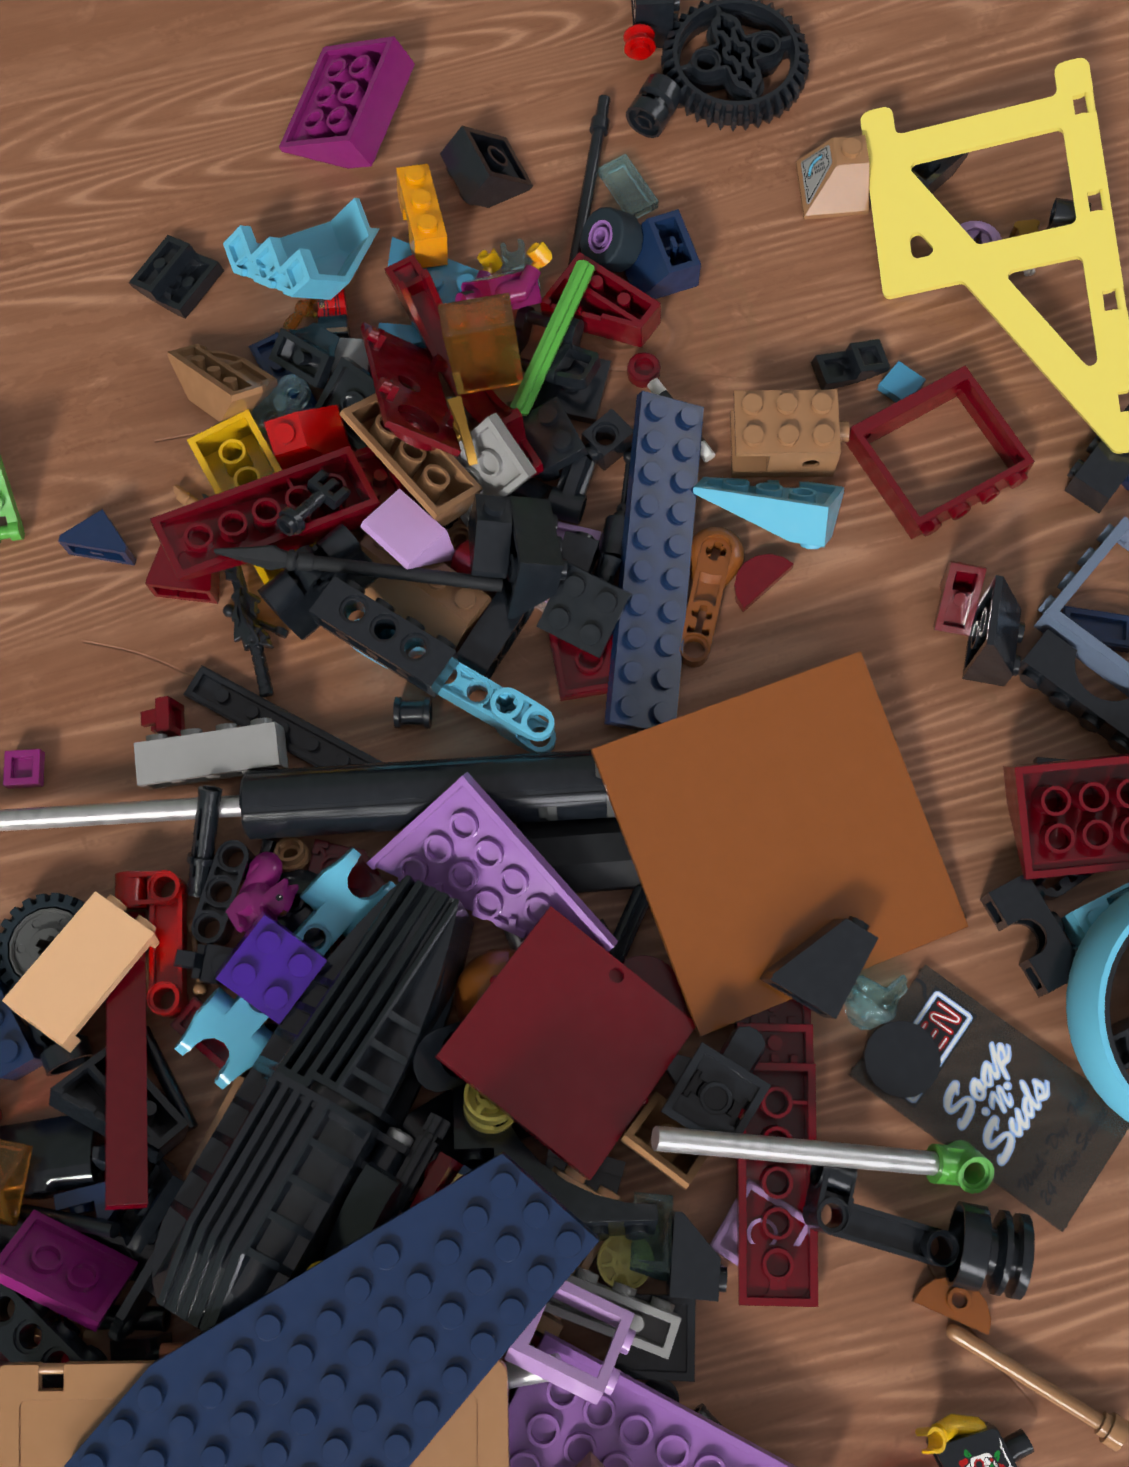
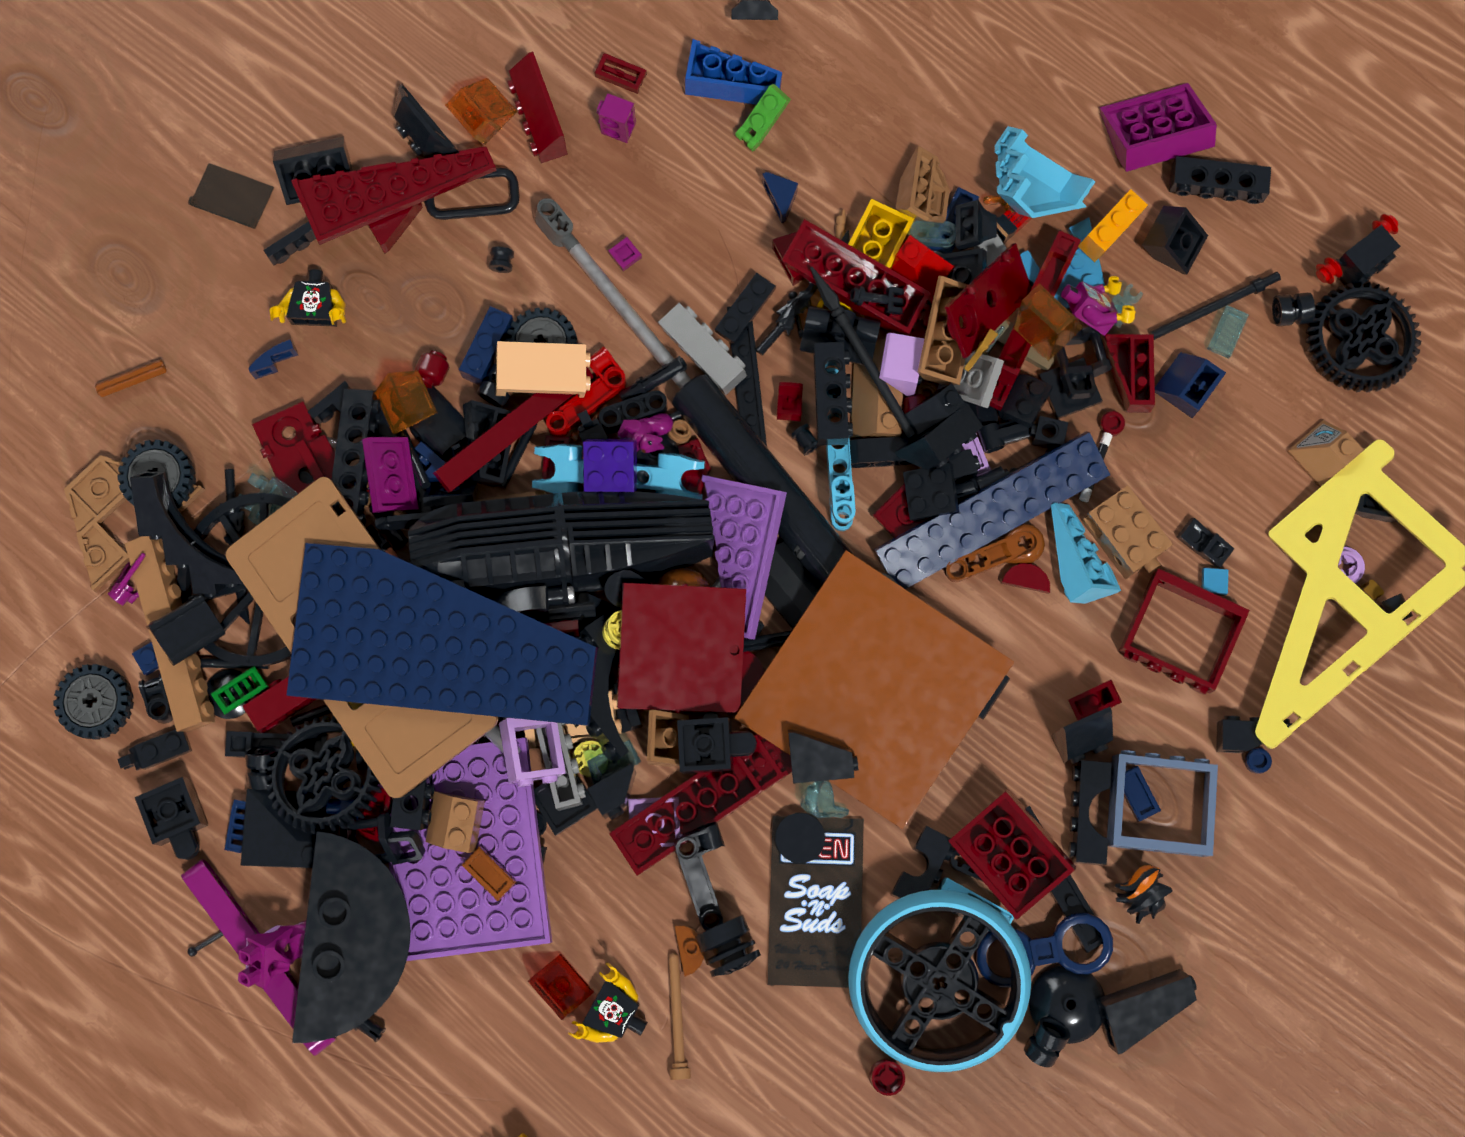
camera: 50 degrees right, 5 degrees up
(165, 717) = (706, 308): dark red tile -> none
(176, 276) = (972, 112): black slope -> none
(202, 674) = (745, 308): none -> black plate
(353, 699) = (789, 401): none -> dark red bracket
(454, 83) = (1230, 173): none -> black brick
(553, 337) = (1086, 357): bright green axle -> none
(612, 239) = (1179, 347): black wheel -> none
(942, 1164) = (755, 891): flat silver piece -> none

